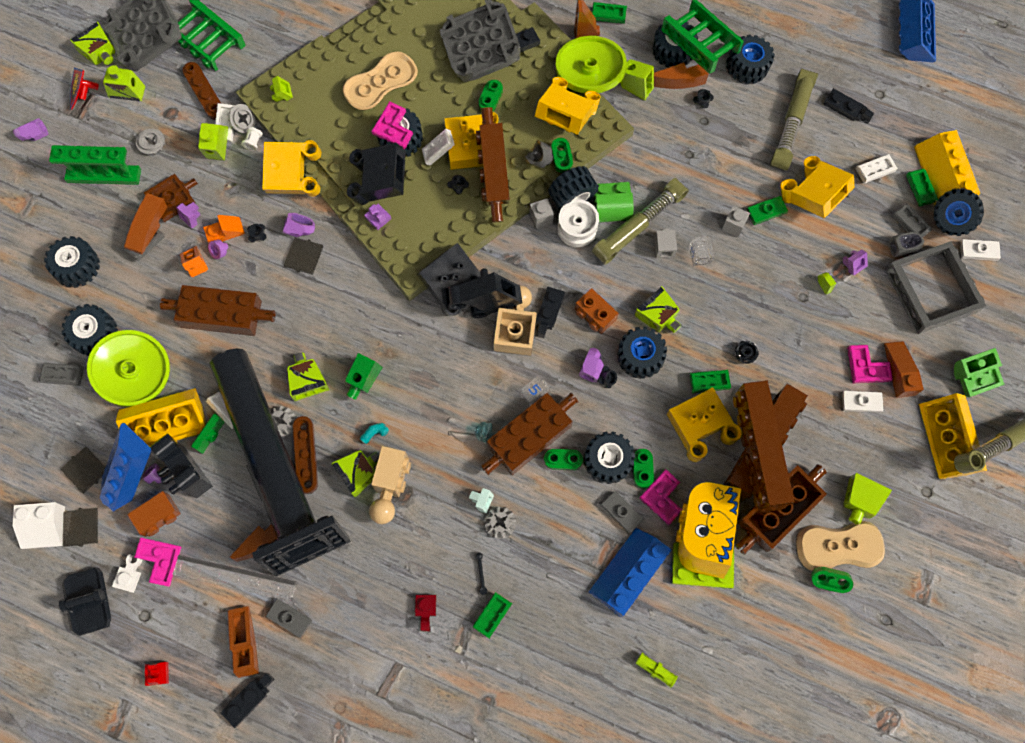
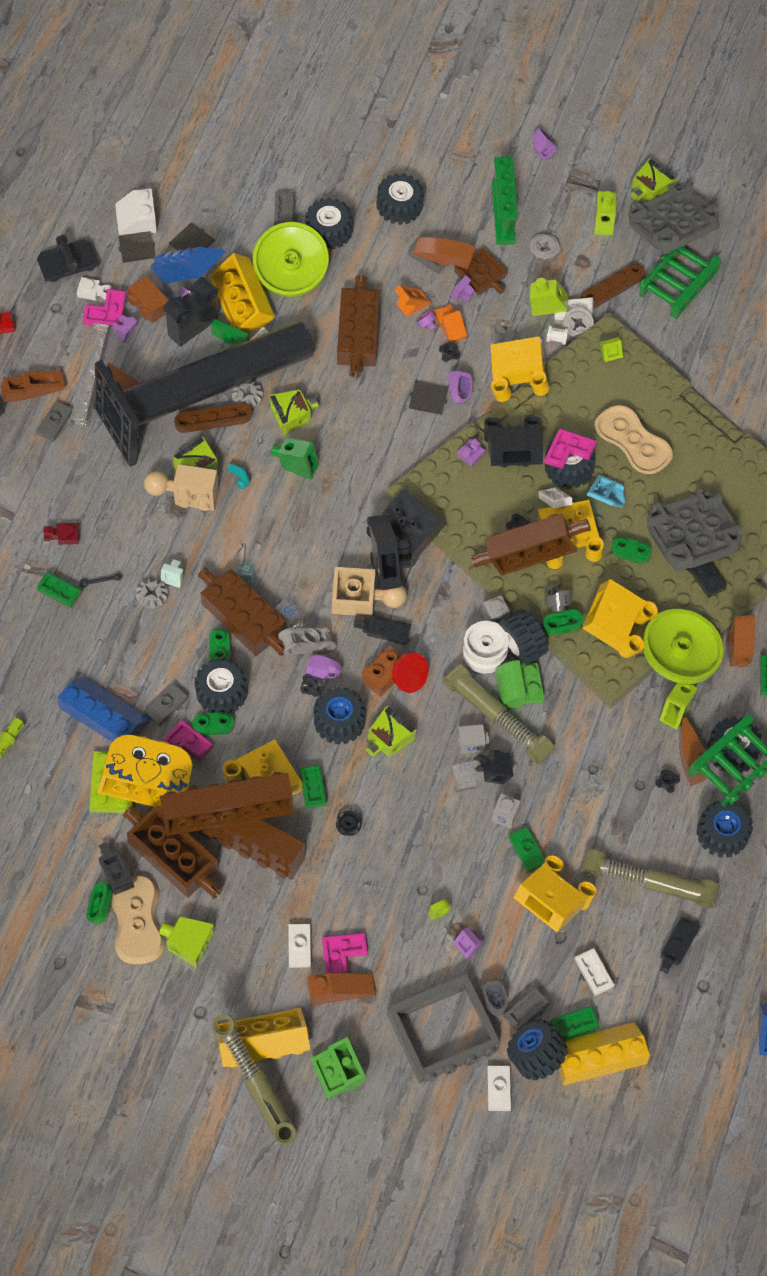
camera: 85 degrees right, 10 degrees down
(80, 87) = (599, 180): shield -> none
(188, 540) = (125, 330): none -> medium lavender tile
(431, 108) = (608, 491): none -> medium azure slope
(566, 375) = (307, 640): none -> light grey piece
(604, 289) = (410, 672): none -> red tile
(694, 224) = (495, 766): none -> black brick
(800, 563) = (114, 870): none -> black hinge

